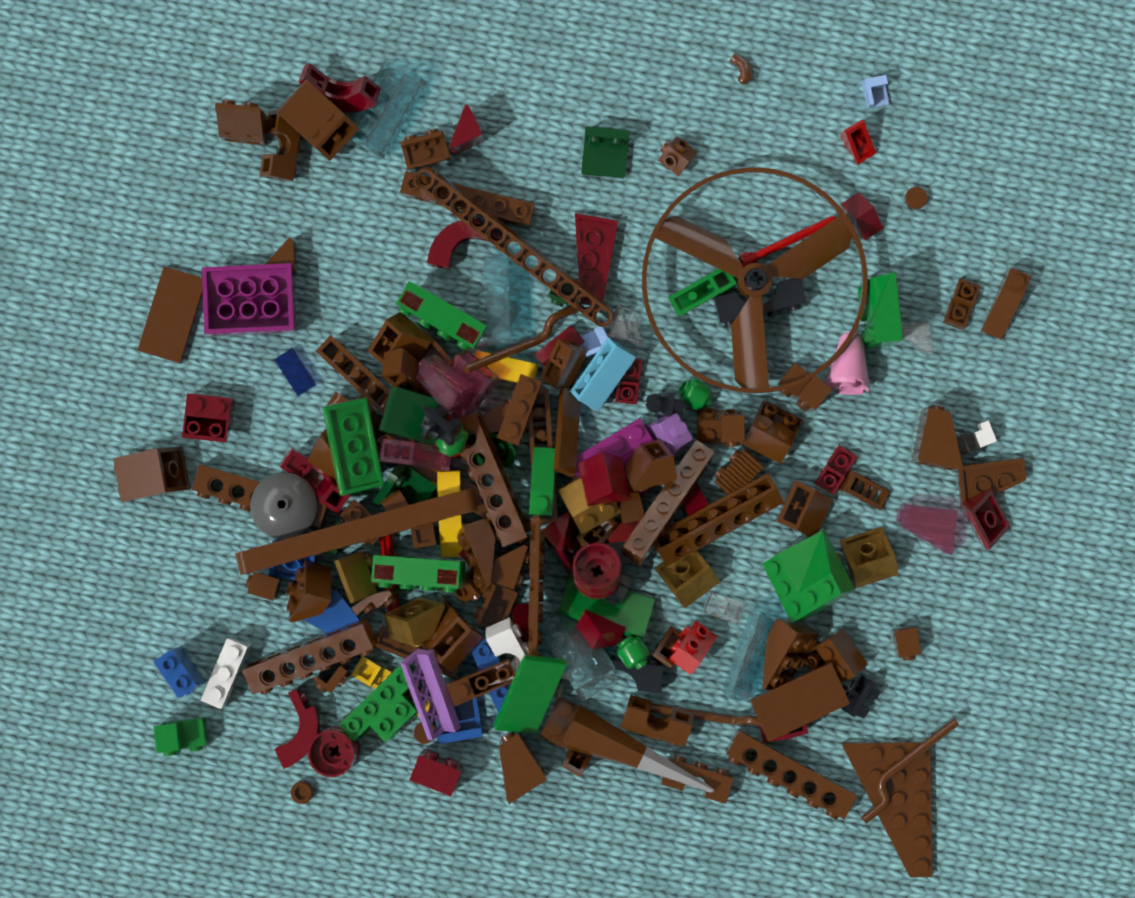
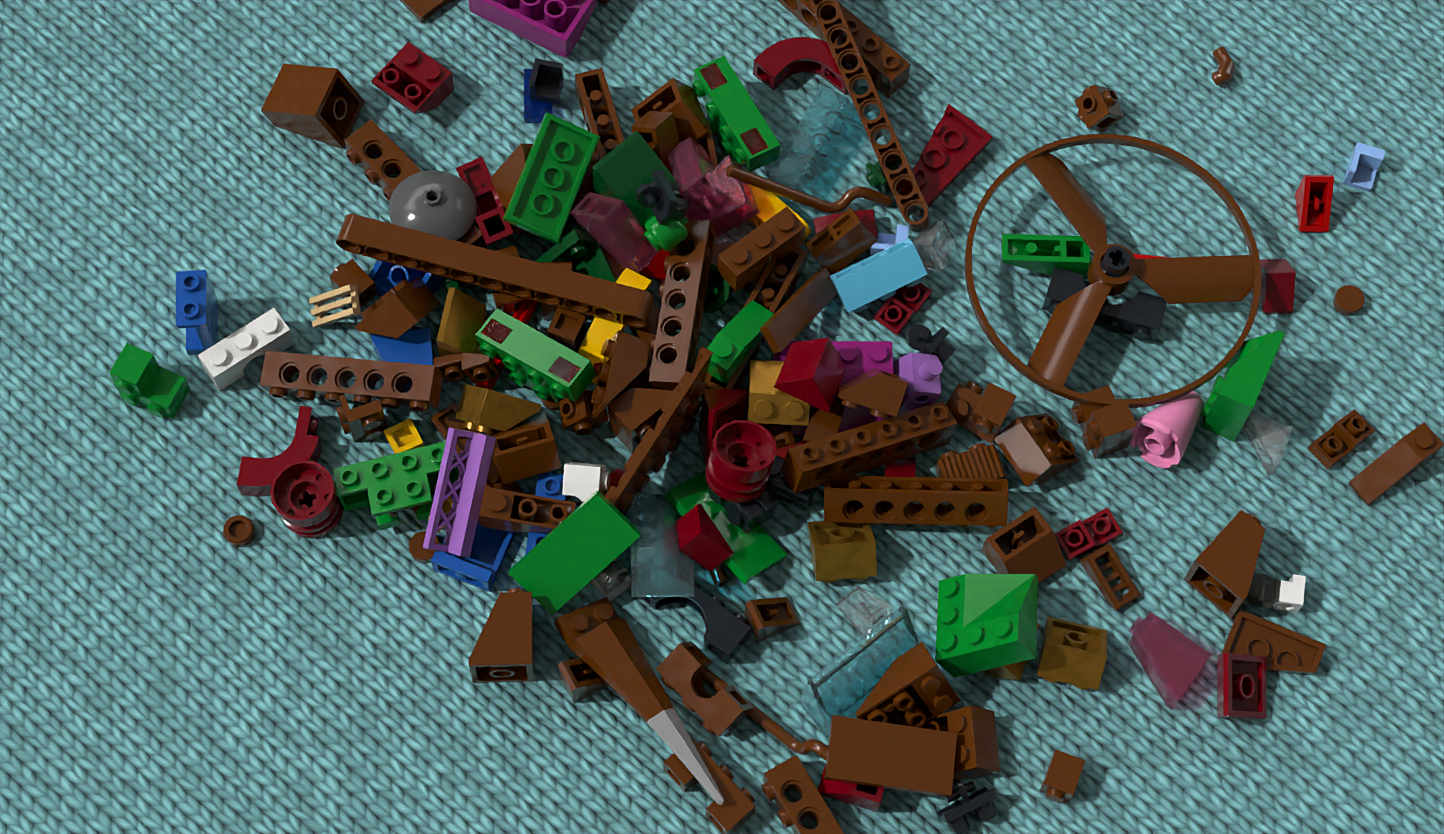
camera: 25 degrees right, 20 degrees down
(255, 616) = (319, 310): none -> tan tile
(298, 364) = (546, 81): none -> black panel
(436, 772) = (407, 590): dark red brick -> none
(496, 606) = (600, 447): reddish brown bracket -> none
(605, 152) = (1021, 62): dark green bracket -> none
(633, 652) = (725, 587): green head -> none
(692, 647) = (799, 625): red brick -> none
(695, 393) = (971, 359): green head -> none

